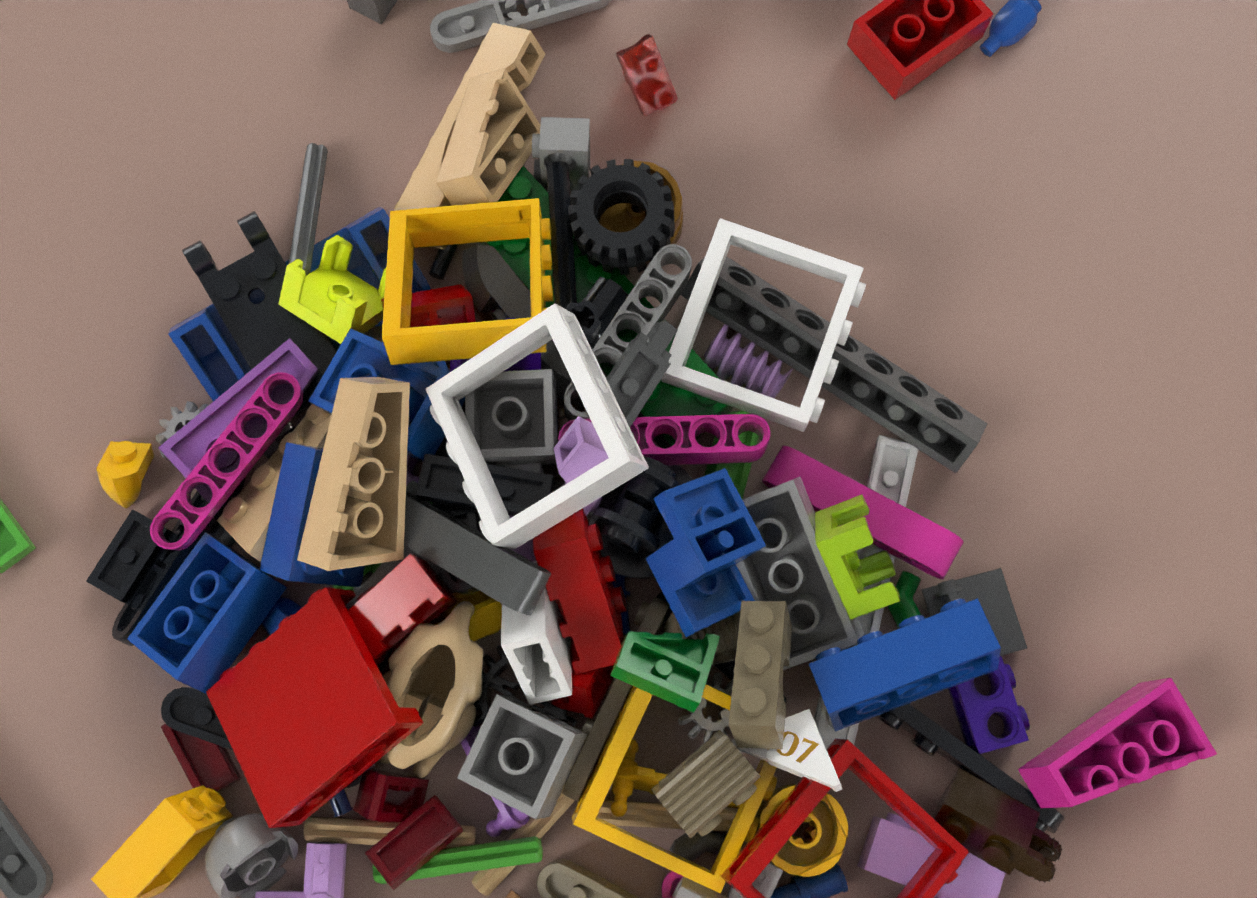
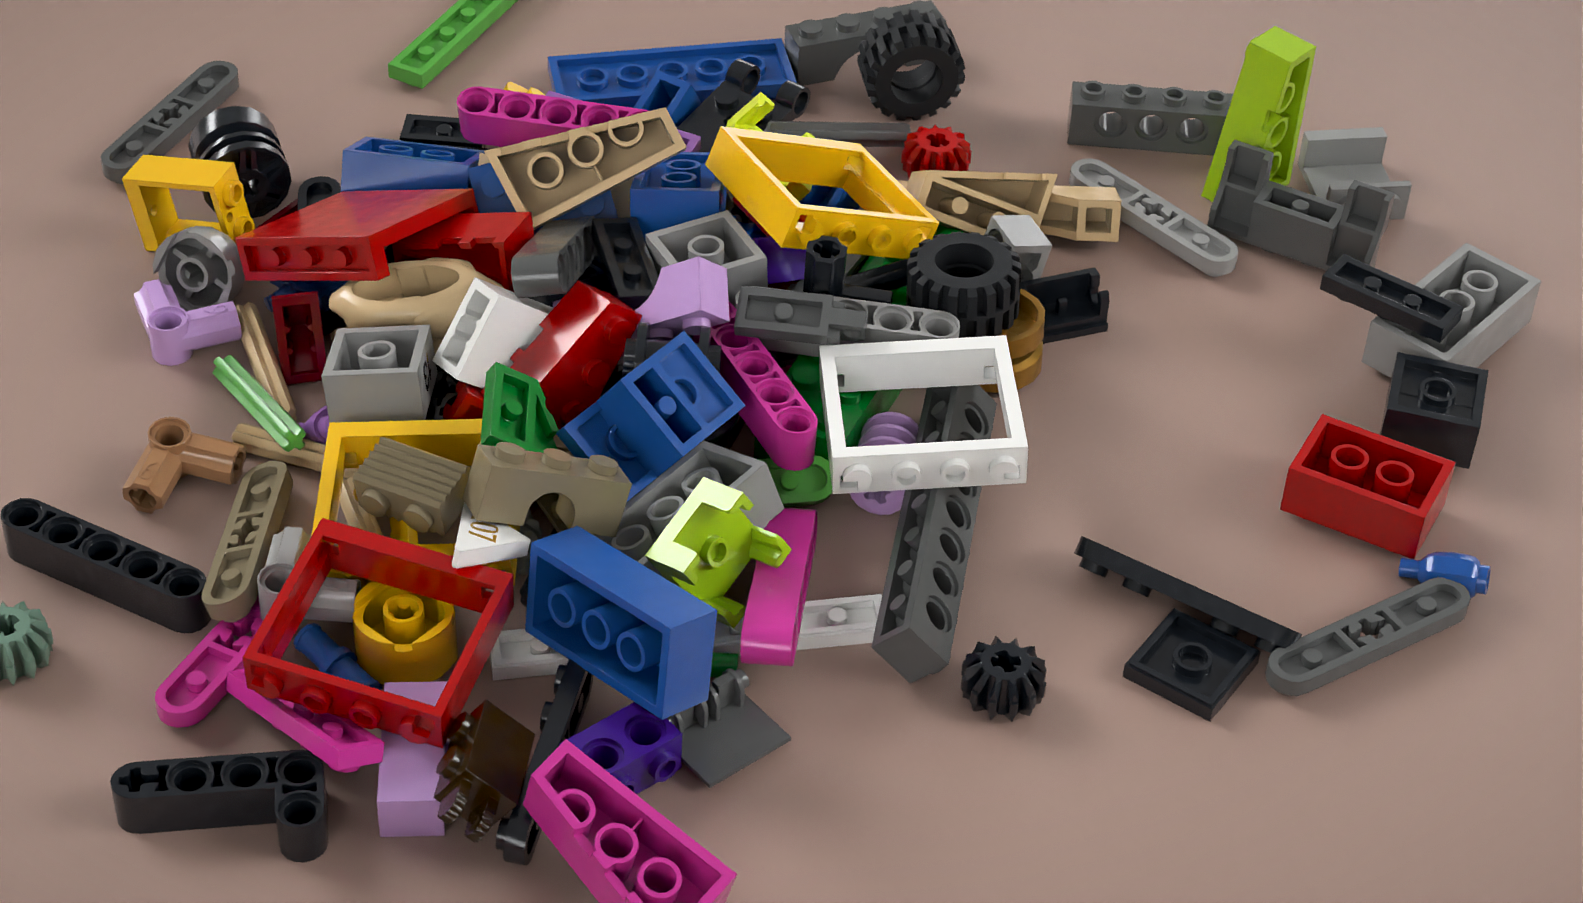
camera: 65 degrees right, 35 degrees down
(105, 773) = (250, 142): none -> black wheel
(132, 317) = (623, 75): none -> blue plate
(167, 160) = (823, 45): none -> dark grey arch
(252, 105) = (902, 41): none -> black tyre
(372, 128) = (935, 150): none -> red gear
(414, 842) = (263, 363): dark red tile -> none
(597, 397) = (747, 218): white window -> none
(611, 132) = (1071, 304): none -> black hinge
(647, 76) = (1147, 304): clear red hips -> none
(967, 216) = (1143, 578): none -> black piece
(1020, 383) = (1003, 678): none -> black gear
(1026, 246) = (1191, 664): none -> black tile
(1047, 80) = (1340, 649): none -> dark grey piece

